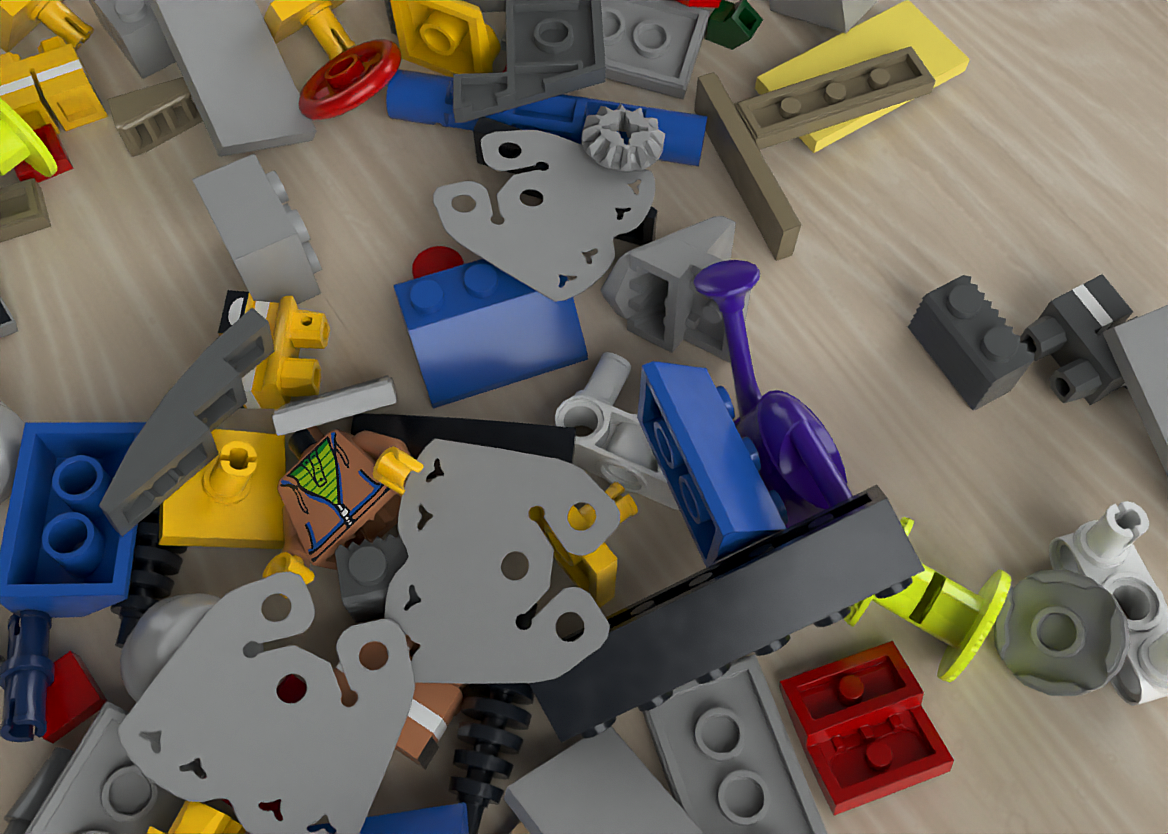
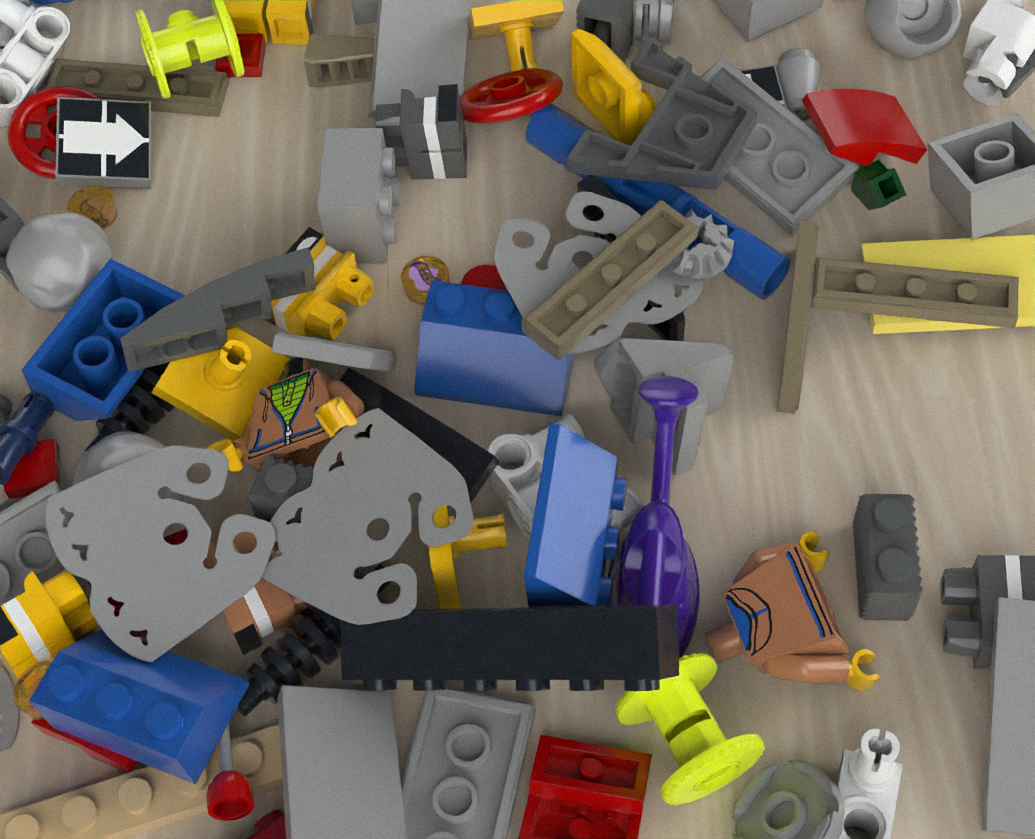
camera: 35 degrees right, 5 degrees down
(294, 143) = (426, 133): none -> dark grey hips
(372, 291) = (418, 275): none -> clear yellow tile
(576, 205) = (609, 279): none -> dark tan tile
(931, 442) = (787, 620): none -> nougat torso

